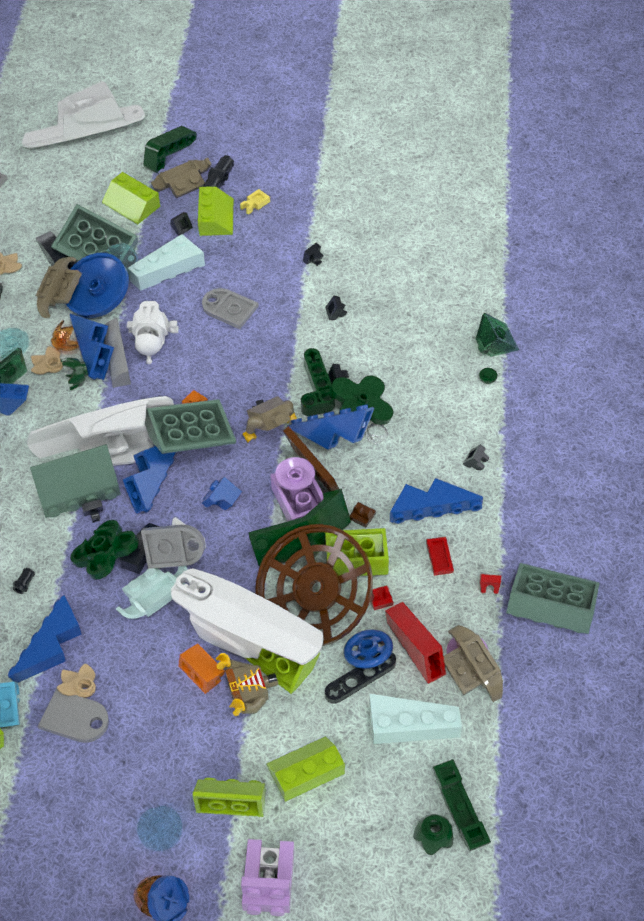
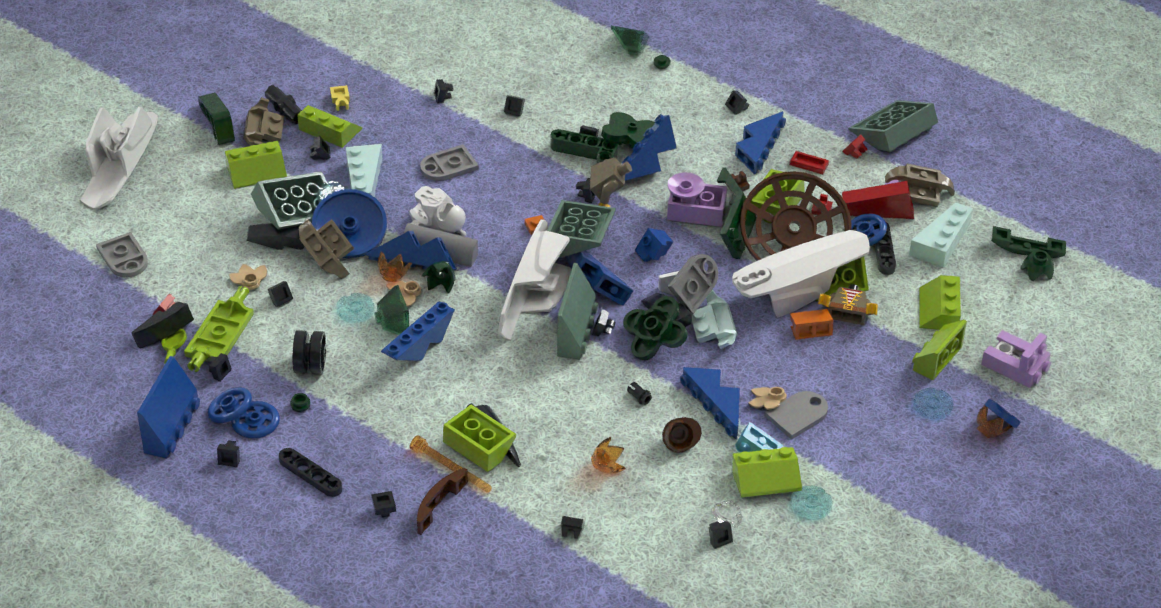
camera: 60 degrees left, 10 degrees down
(303, 452) = (656, 176): reddish brown hinge -> none

